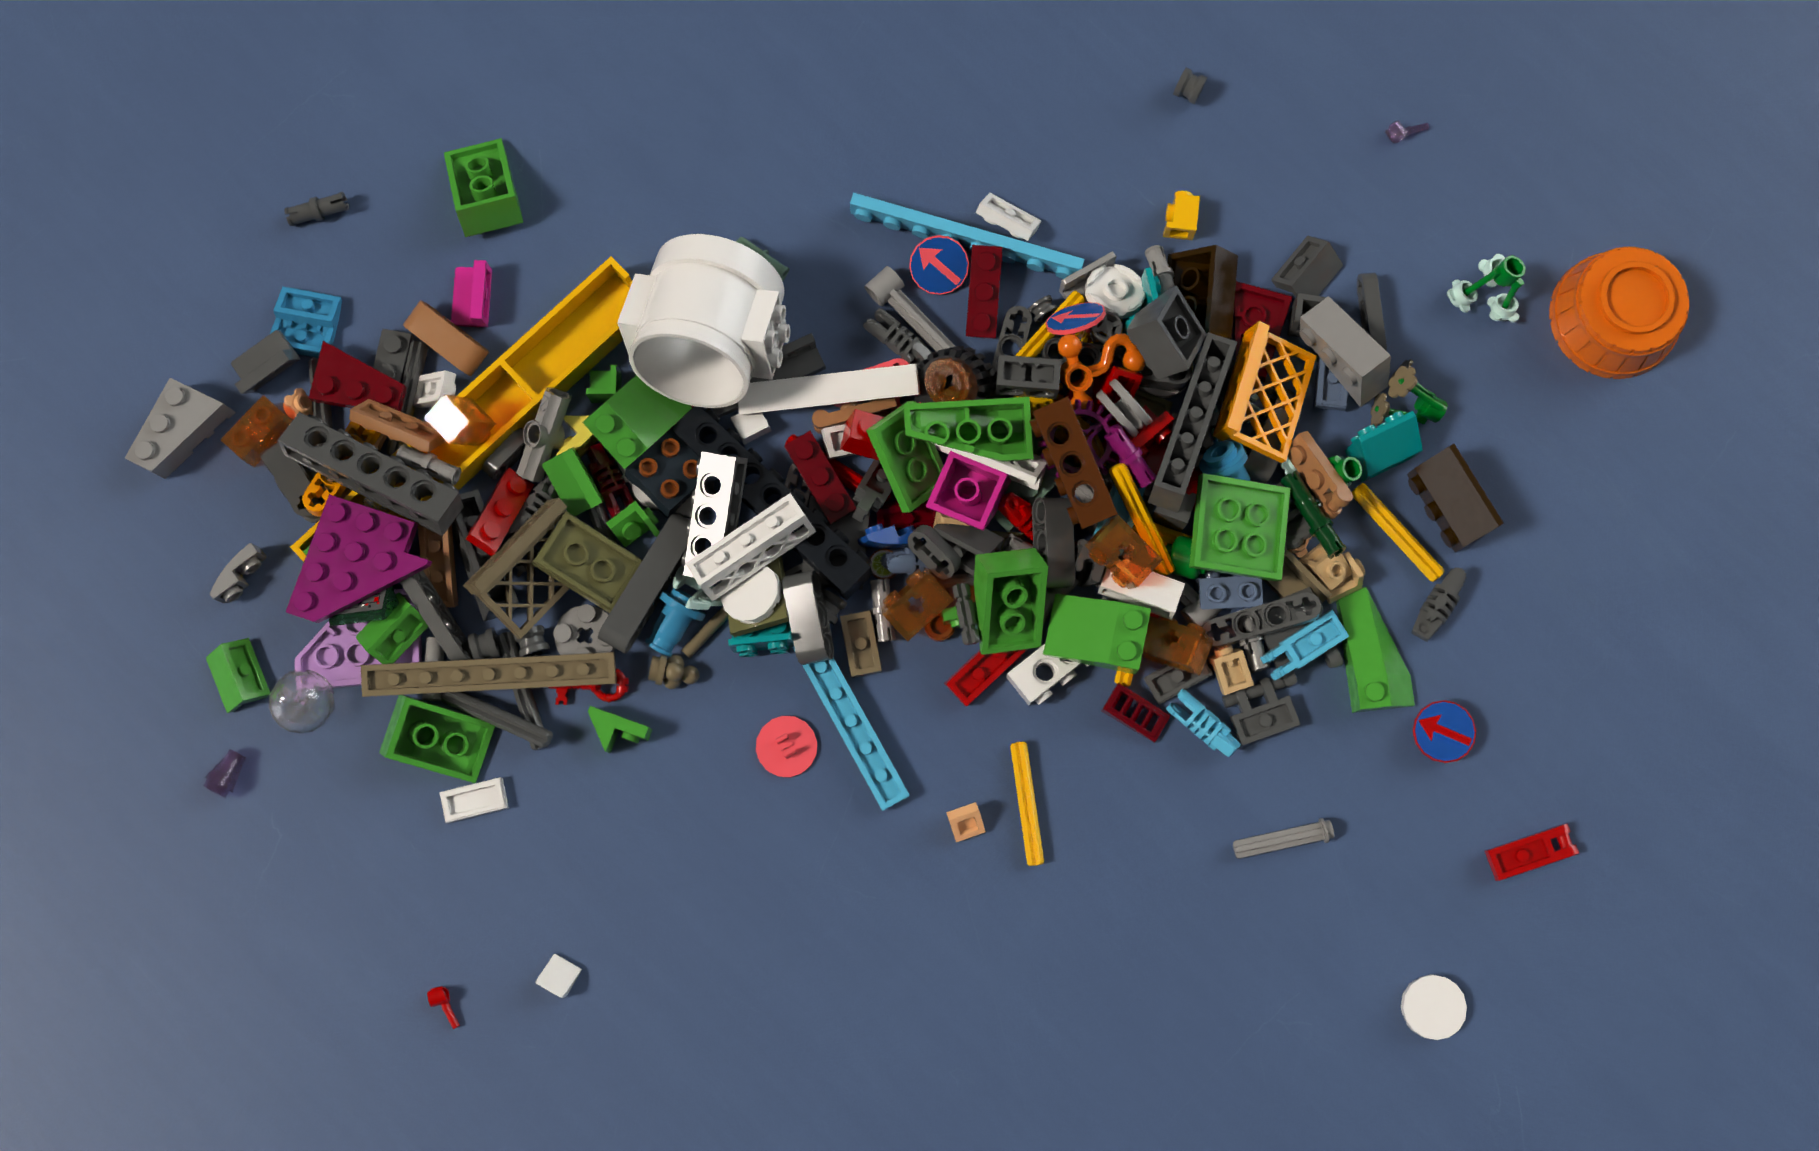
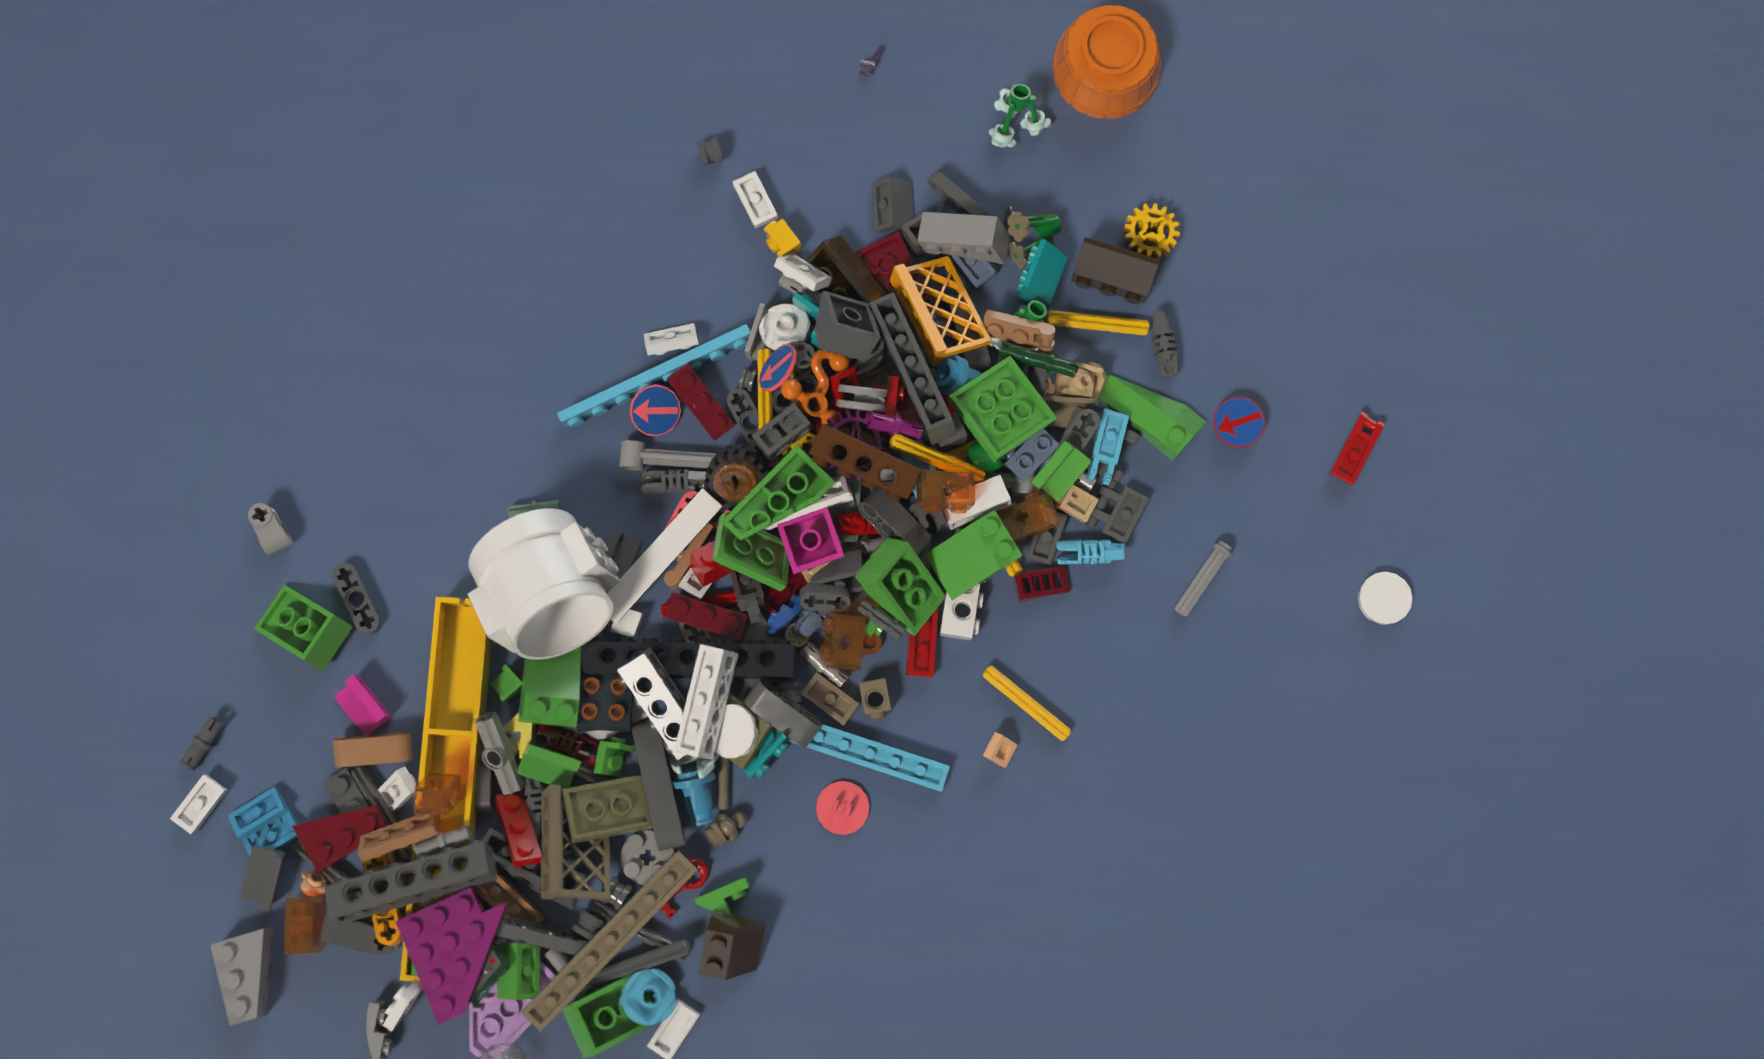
camera: 45 degrees left, 0 degrees up
(268, 256) = (198, 804): none -> white plate
(275, 570) = (402, 1004): none -> white plate
(462, 742) = (633, 999): none -> medium azure plate
(529, 84) = (270, 533): none -> light grey piece
(554, 214) = (358, 619): none -> dark grey beam
(583, 774) = (731, 946): none -> dark brown slope
(899, 664) = (876, 686): none -> dark tan brick
(1174, 257) = (802, 272): none -> white plate
(1191, 161) = (755, 199): none -> white plate
(1243, 629) = (1061, 471): none -> bright green panel
(1530, 485) = (1147, 222): none -> yellow gear

